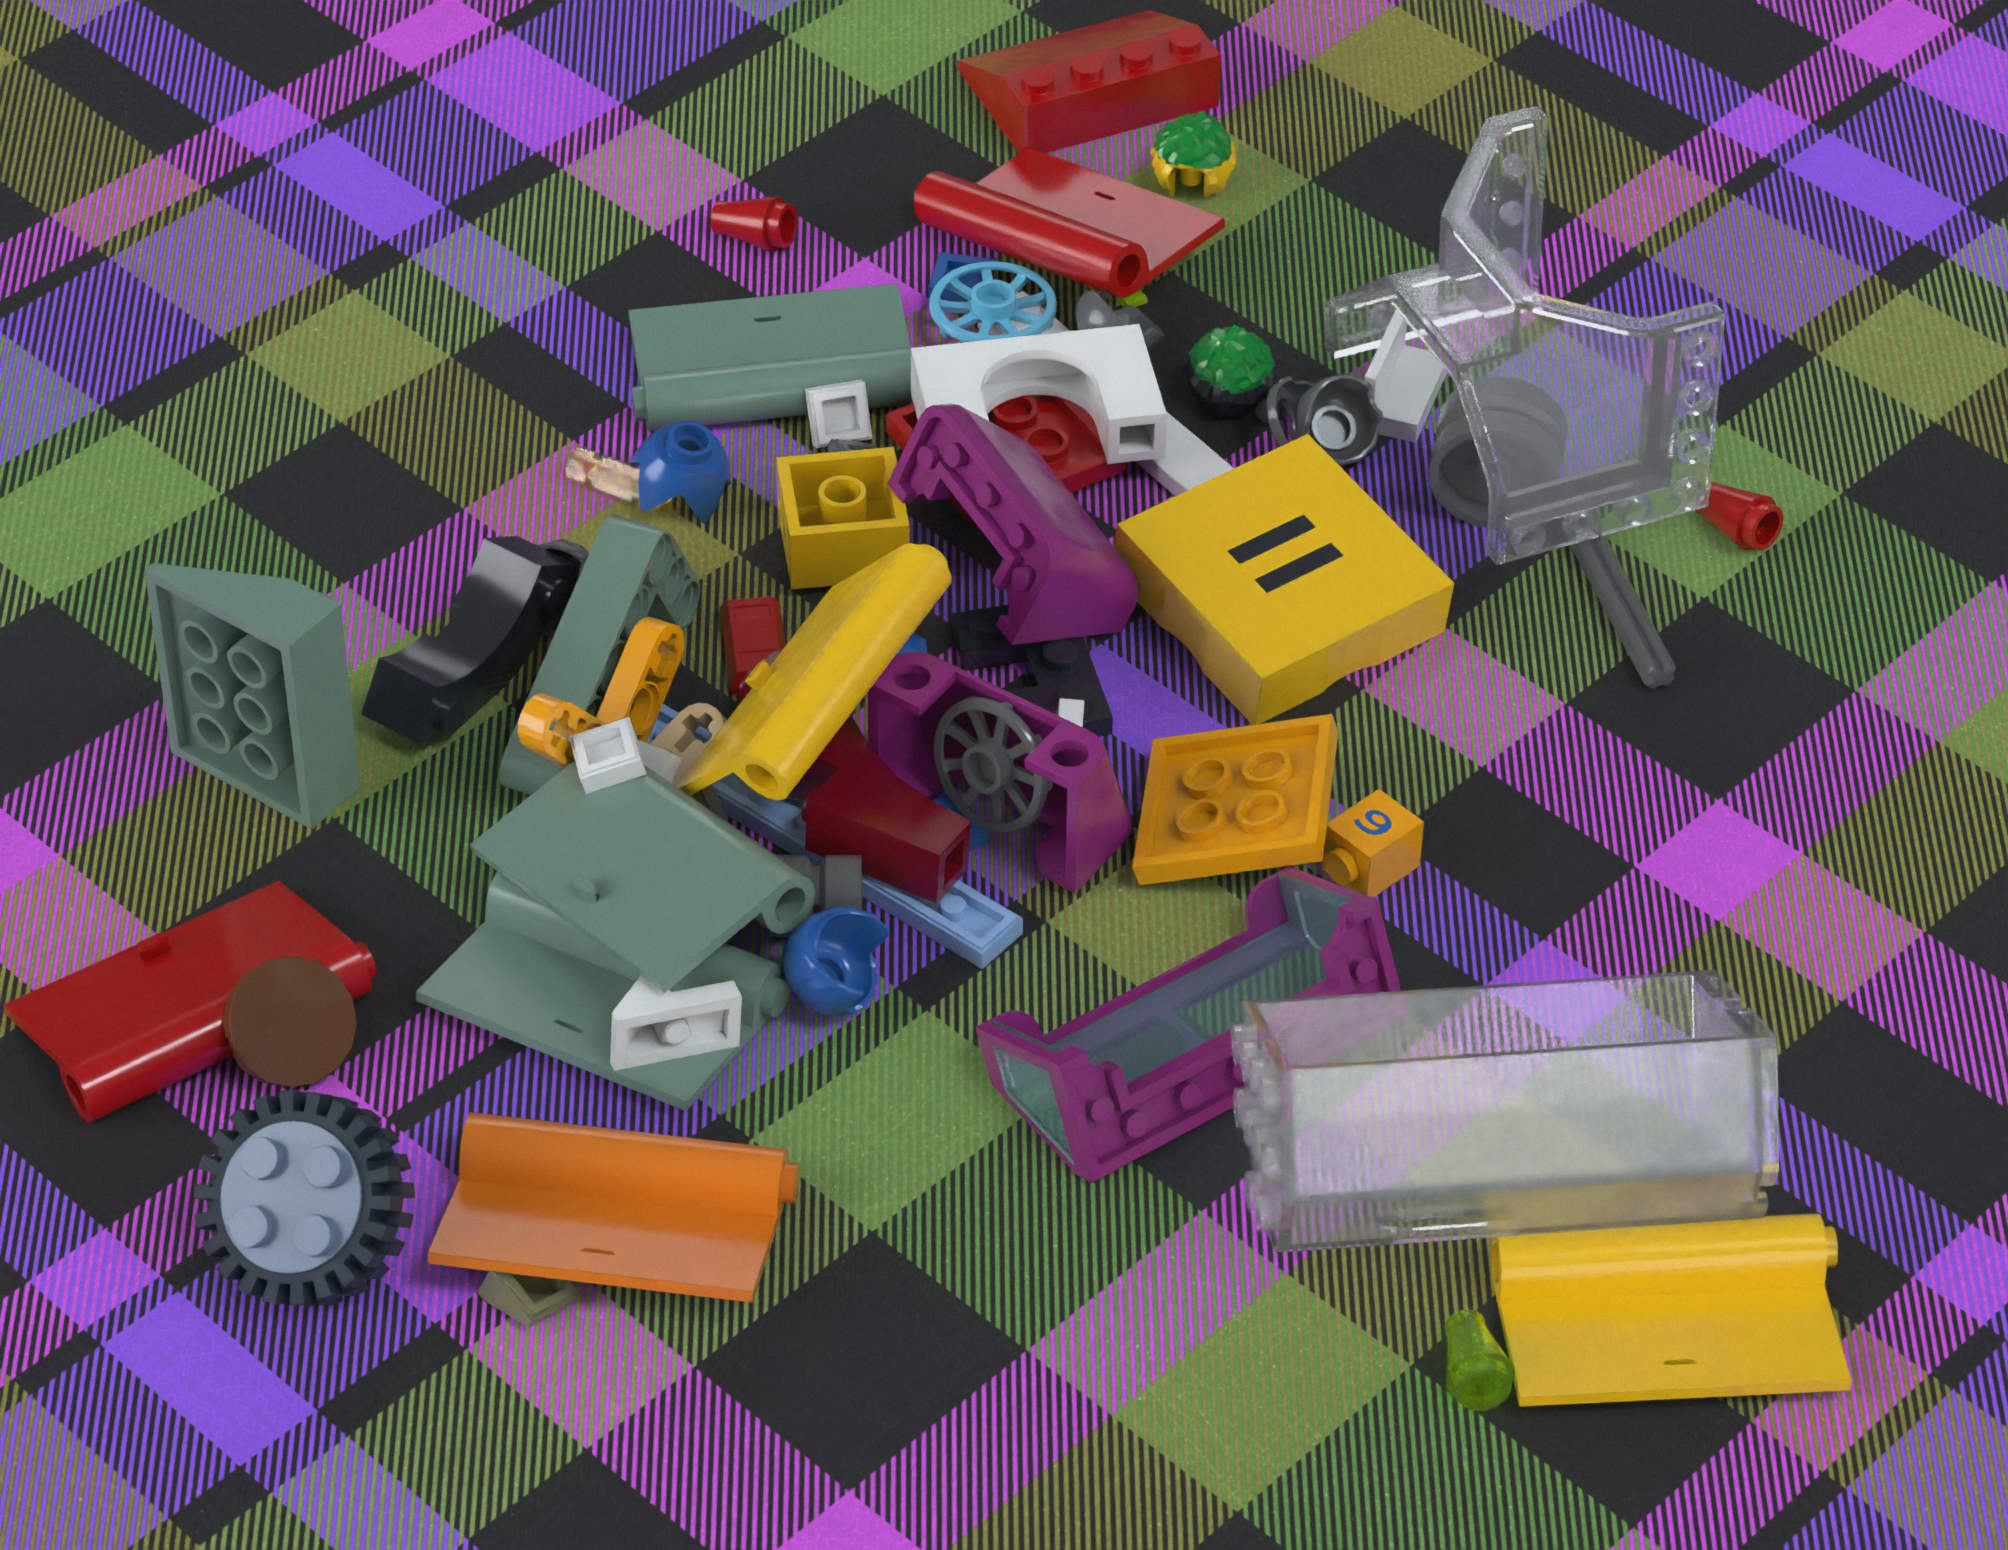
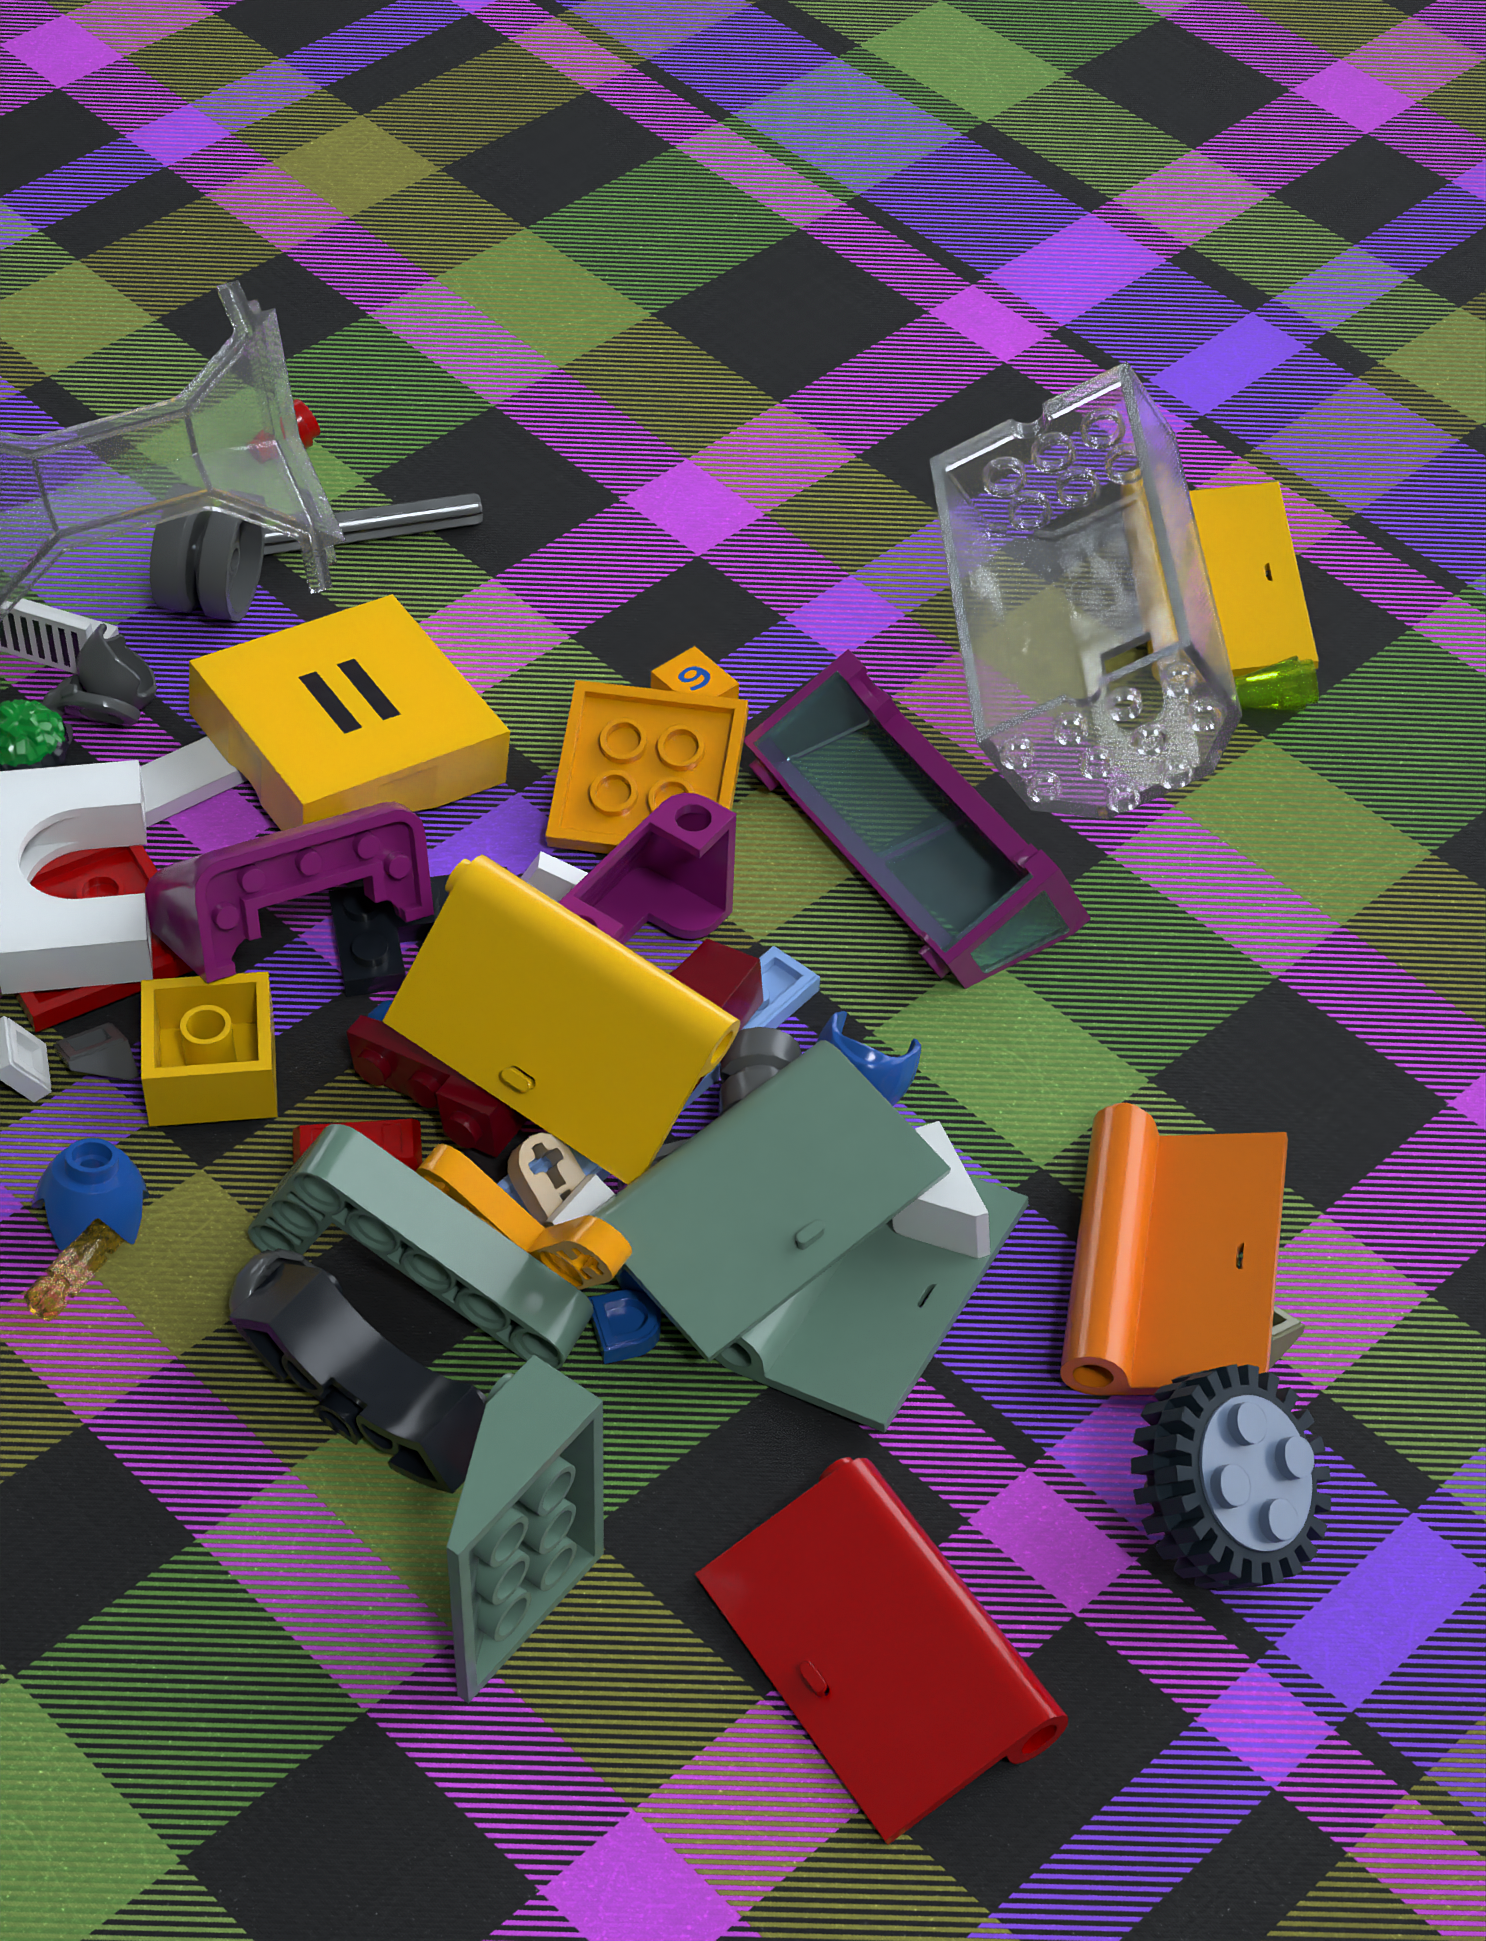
camera: 90 degrees left, 5 degrees up
(289, 1021) = (948, 1527): reddish brown tile -> none
(607, 755) = (630, 1204): white tile -> none
(990, 764) = (637, 908): dark grey wheel -> none

